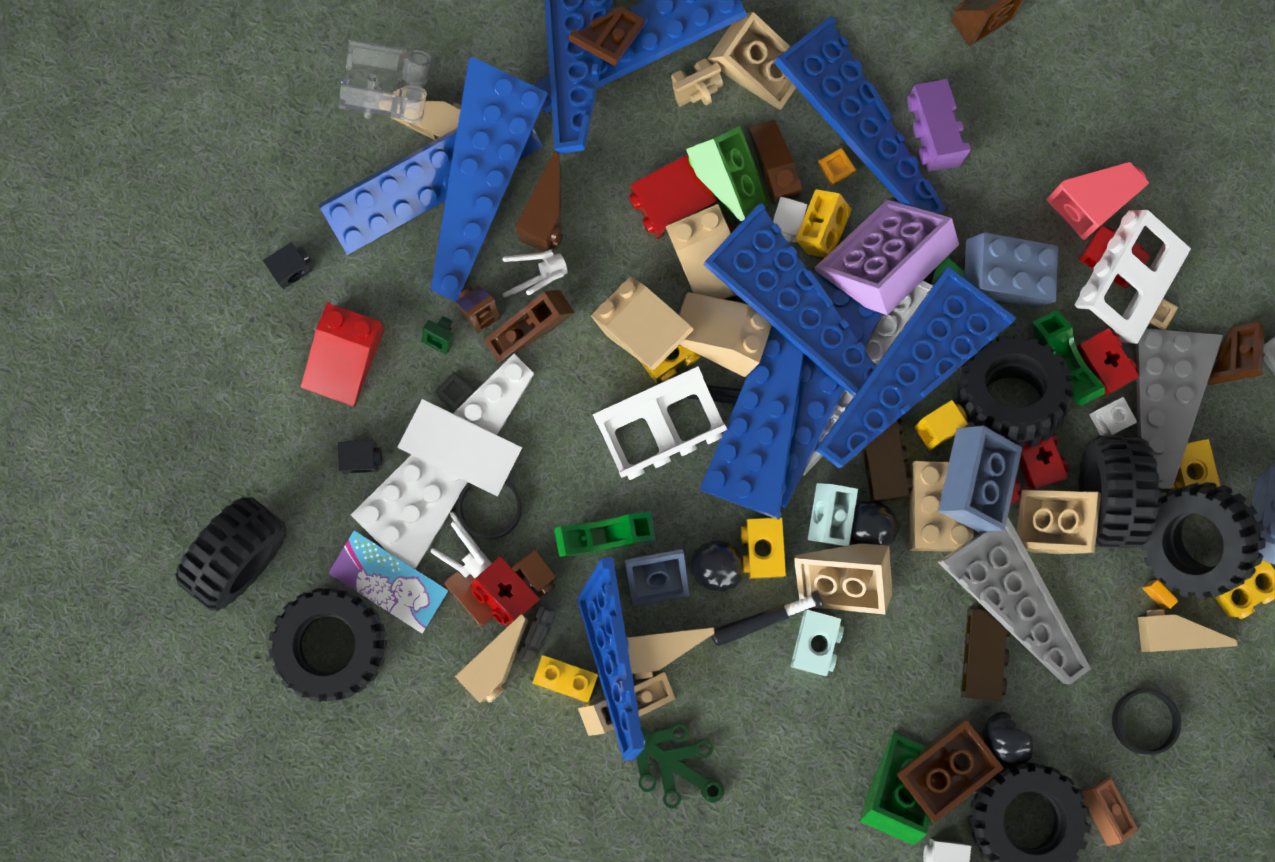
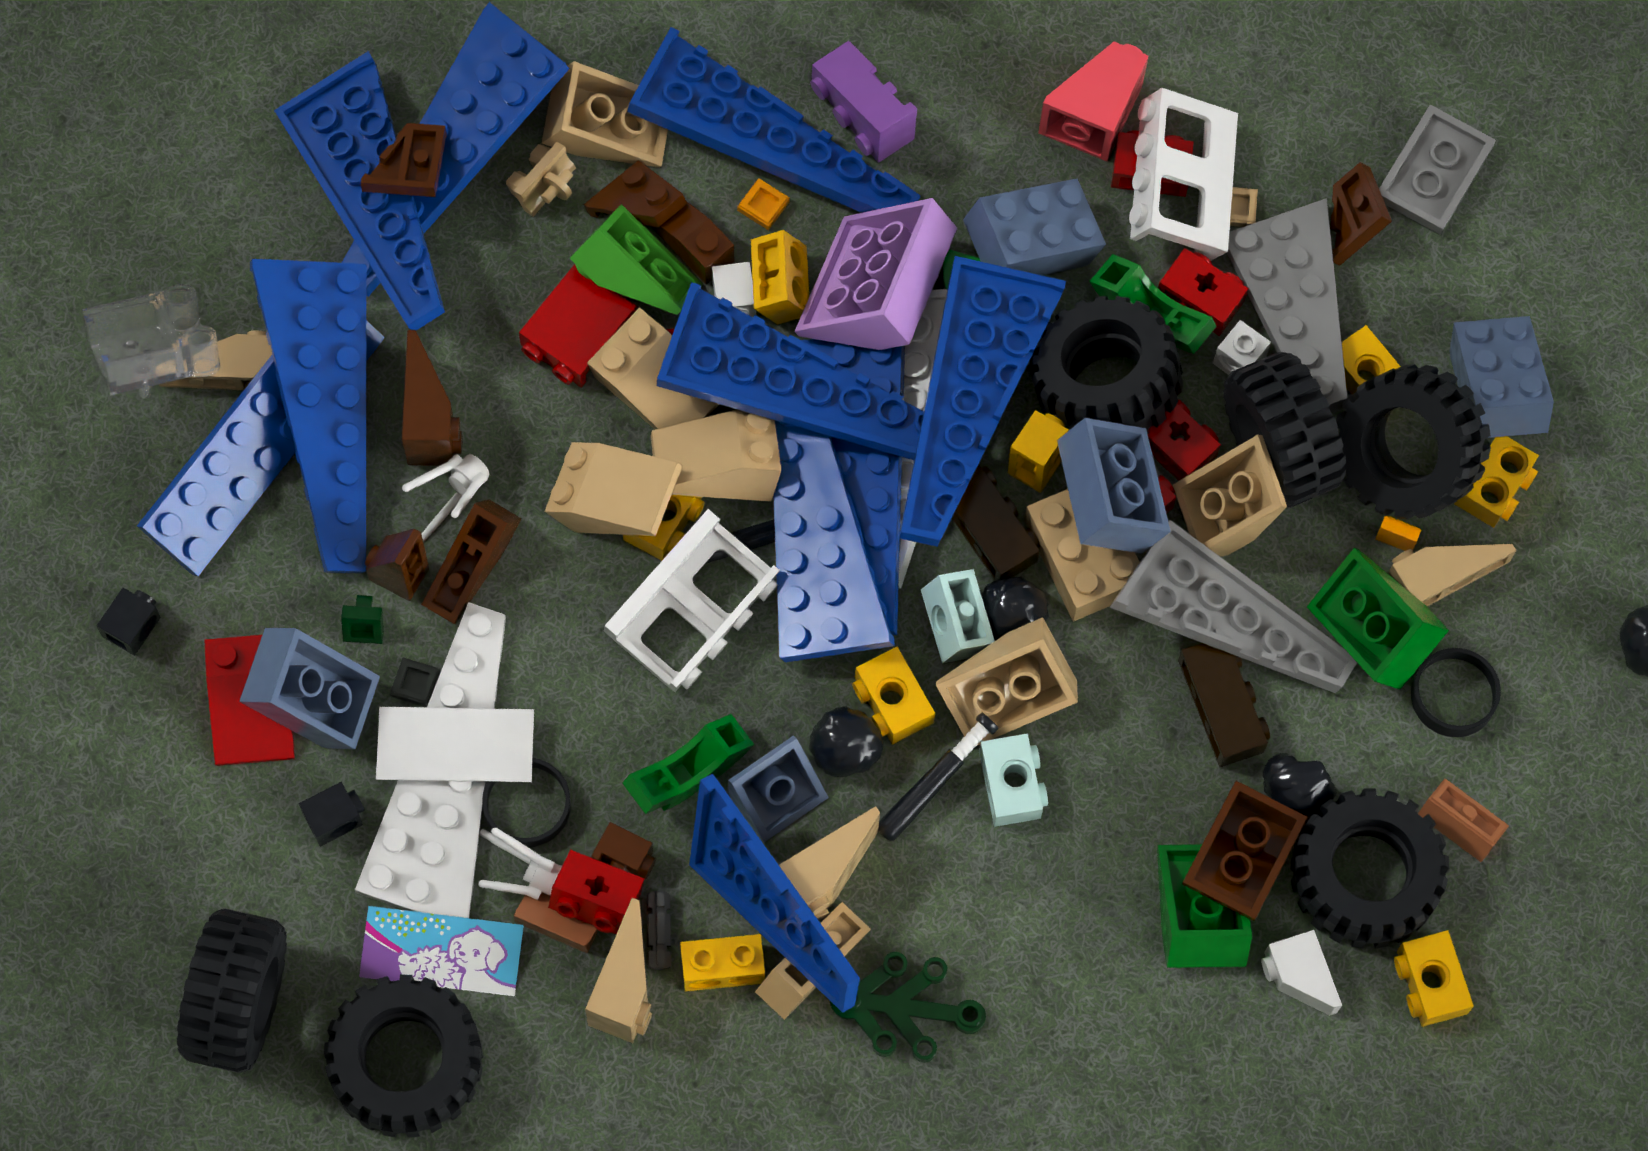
camera: 25 degrees left, 10 degrees down
(378, 368) = (309, 688): none -> sand blue brick
(757, 125) = (641, 193): none -> reddish brown wing
(1116, 649) = (1377, 620): none -> green slope

